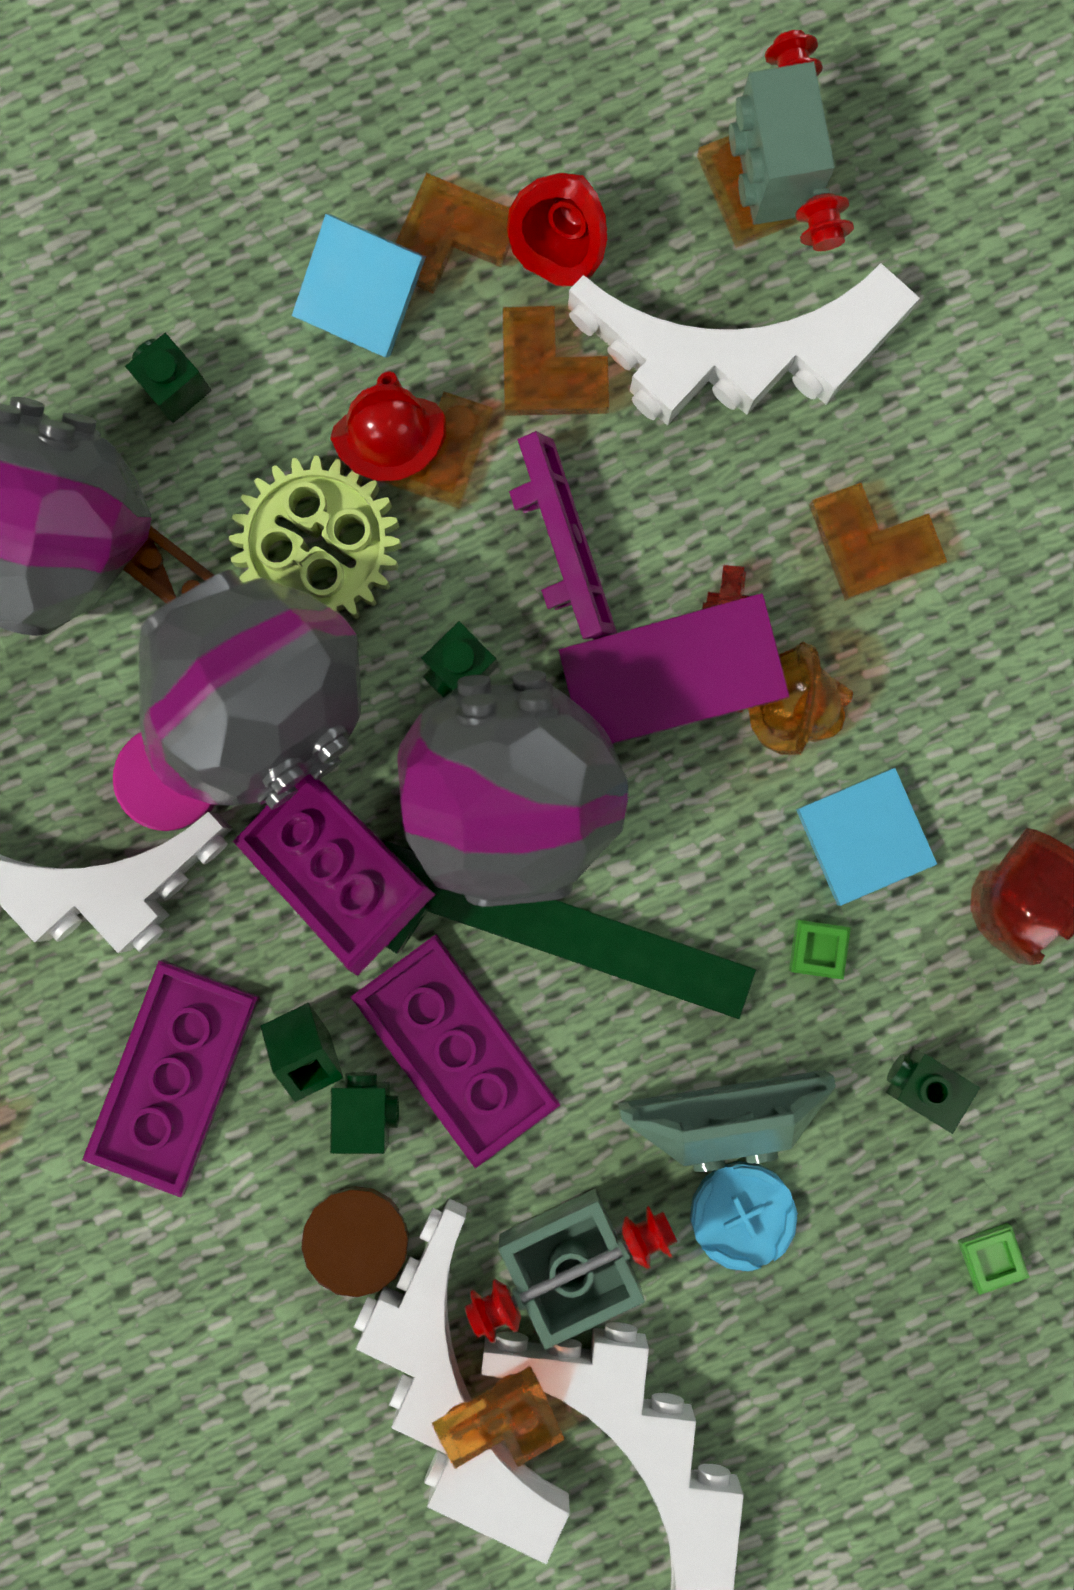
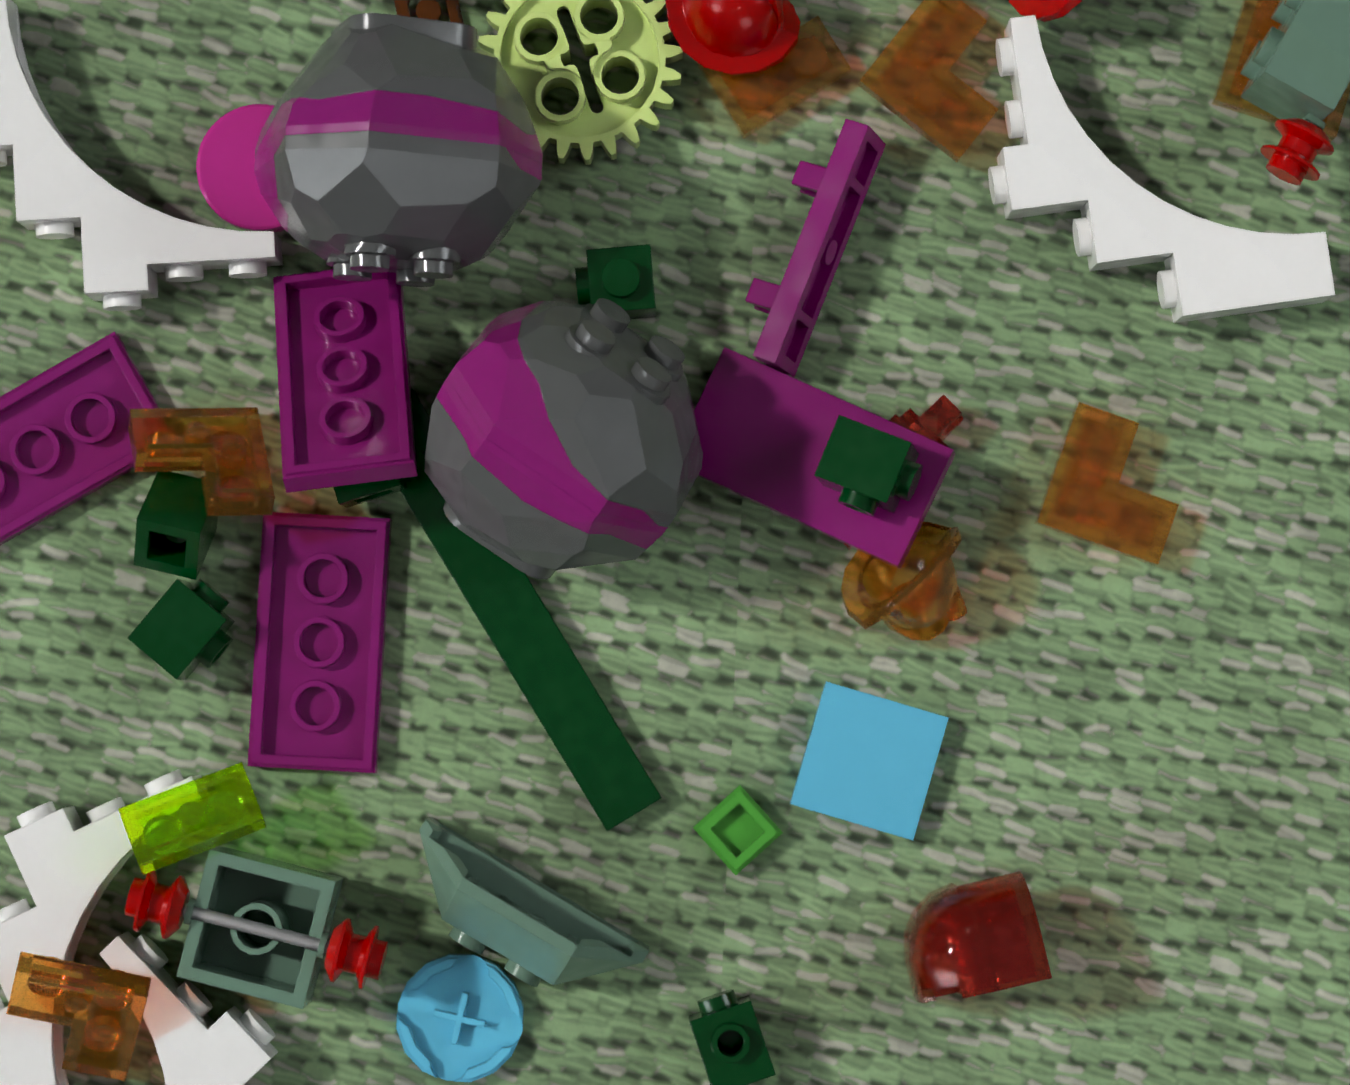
camera: 40 degrees right, 0 degrees up
(283, 978) = (217, 442): none -> clear orange plate
(355, 1241) = (81, 742): reddish brown tile -> none
(470, 1238) = (192, 818): none -> clear neon green plate
(720, 648) = (868, 467): none -> dark green brick

